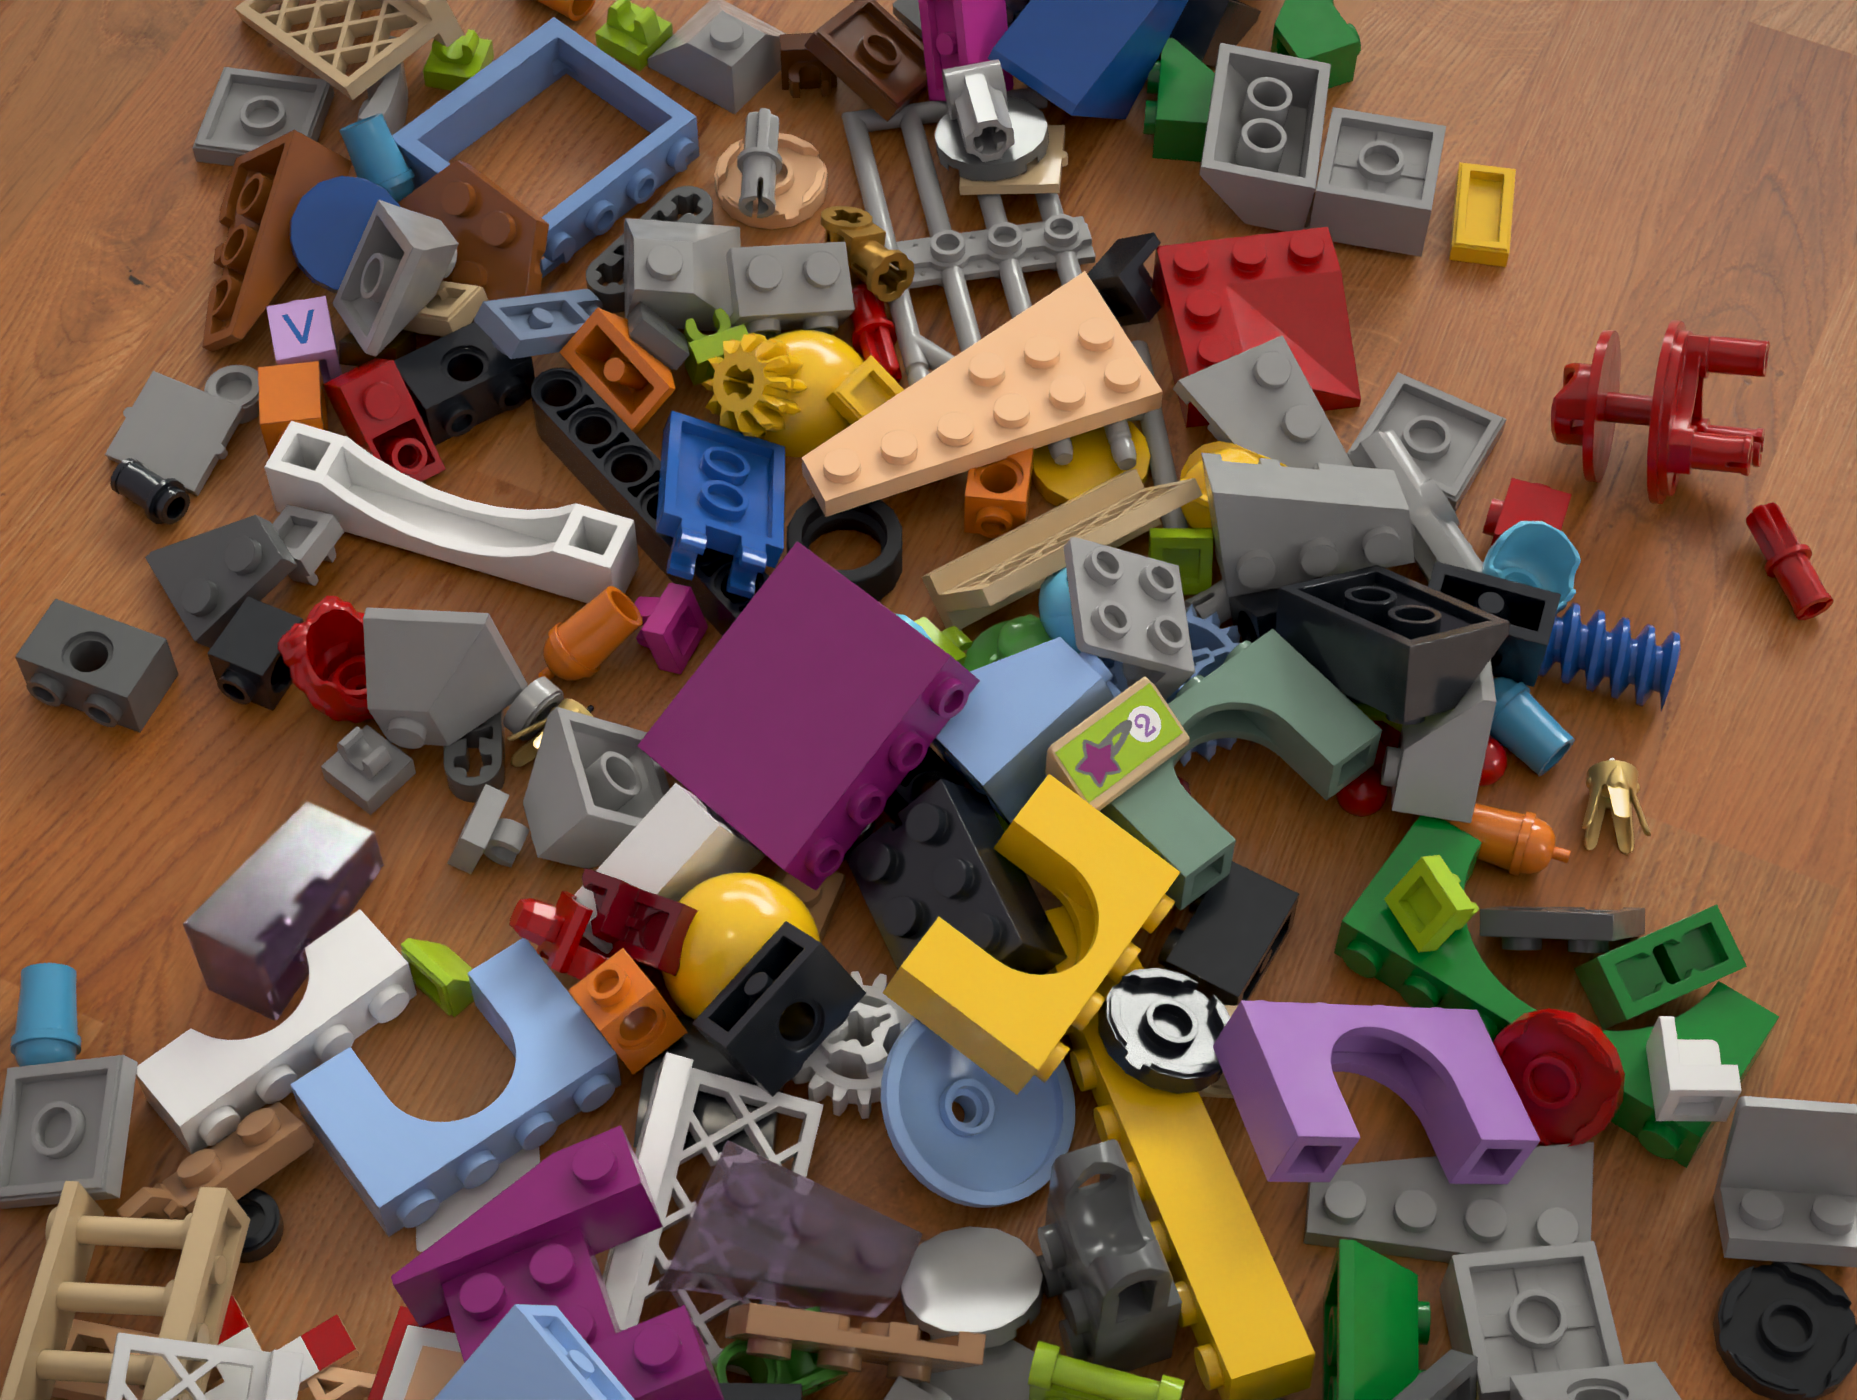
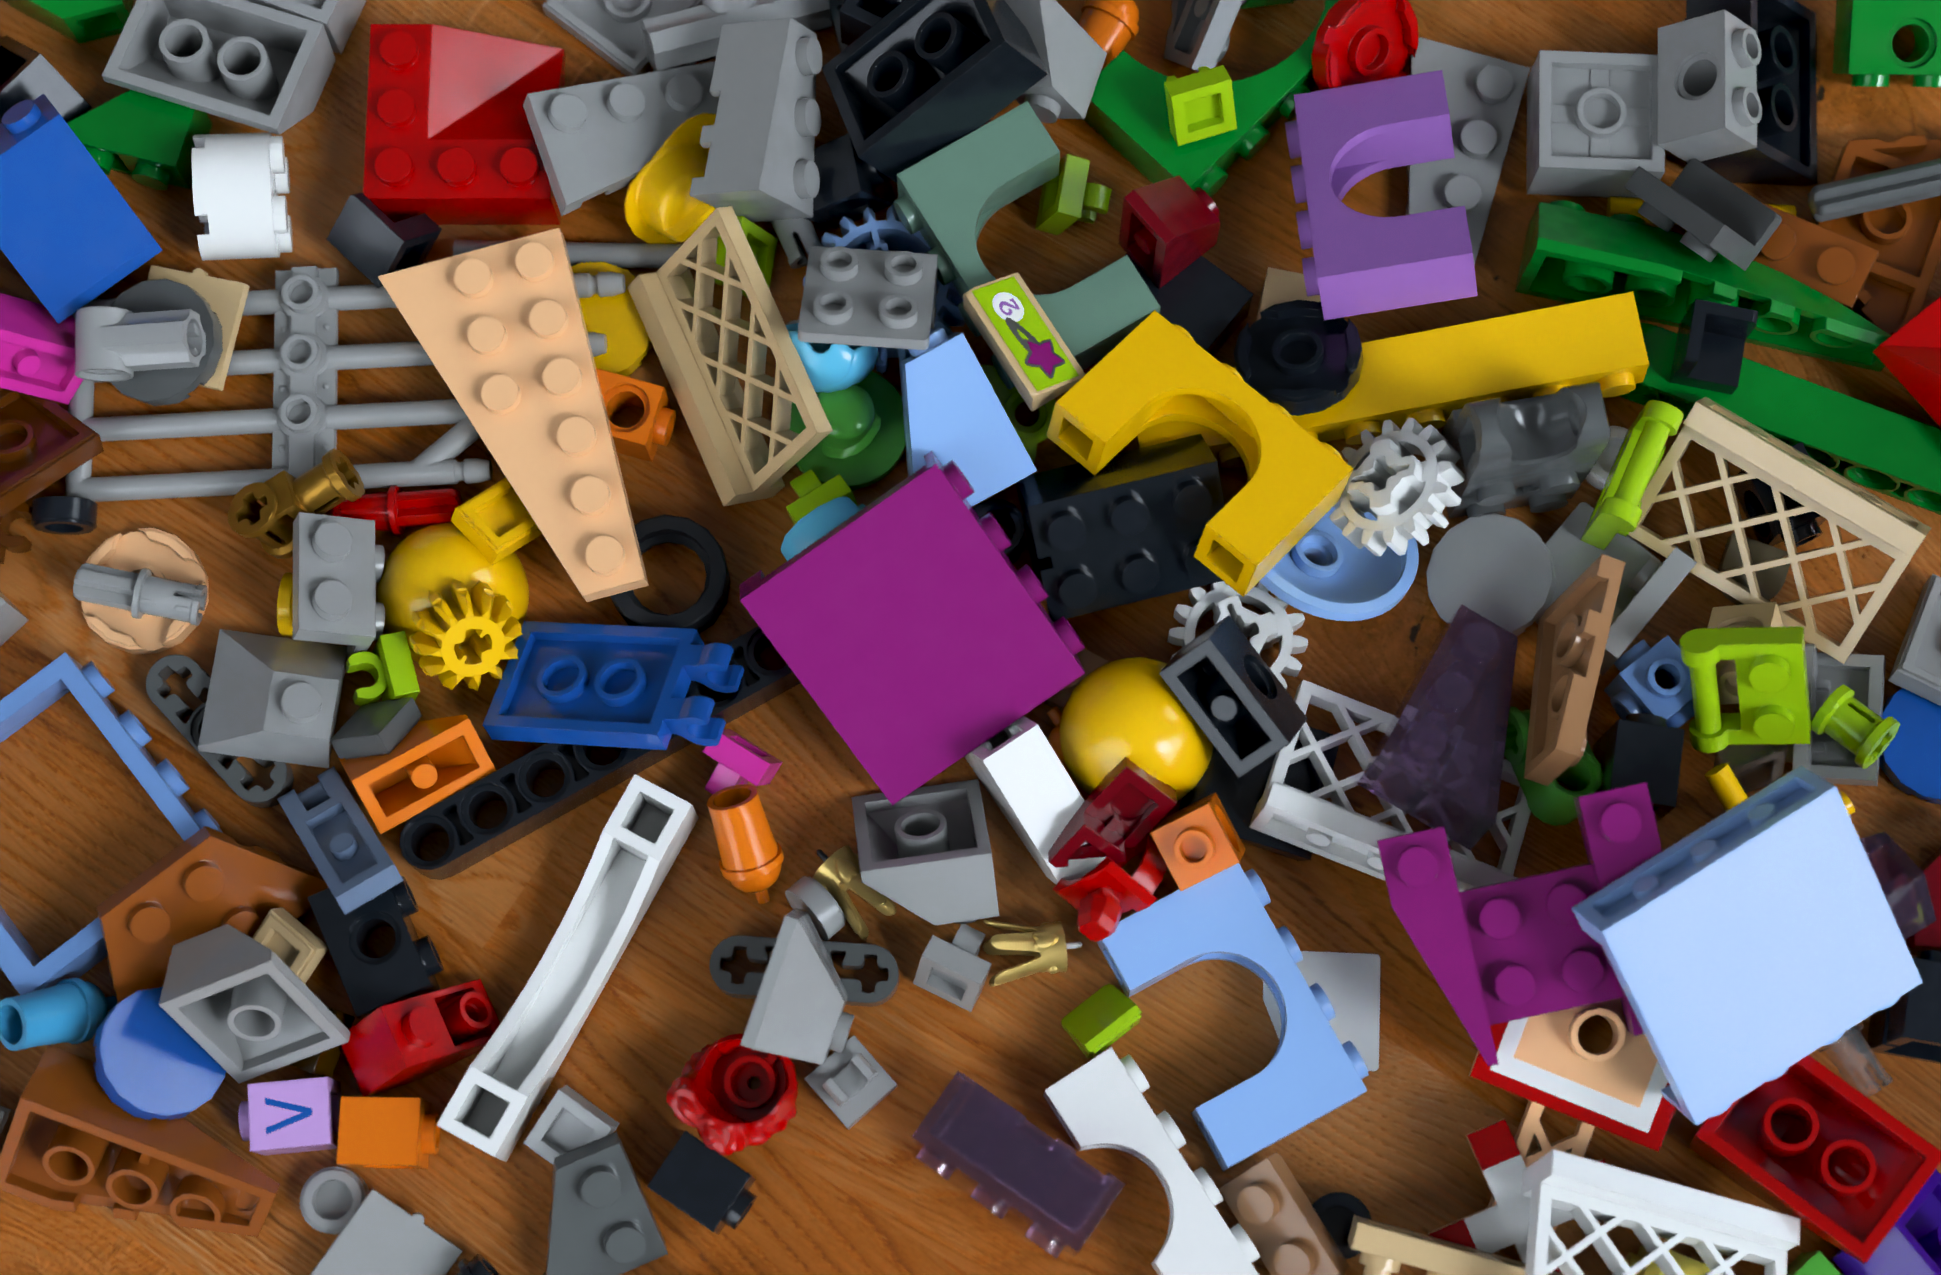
camera: 80 degrees left, 20 degrees up
(513, 889) = (1043, 941): none -> pearl gold piece
(825, 109) = (64, 515): none -> black tile
(1027, 1133) = (1397, 487): none -> white gear
(1140, 168) = (238, 198): none -> white brick
(1280, 878) = (1168, 227): none -> dark red slope
(1314, 828) = (1070, 197): none -> lime tile

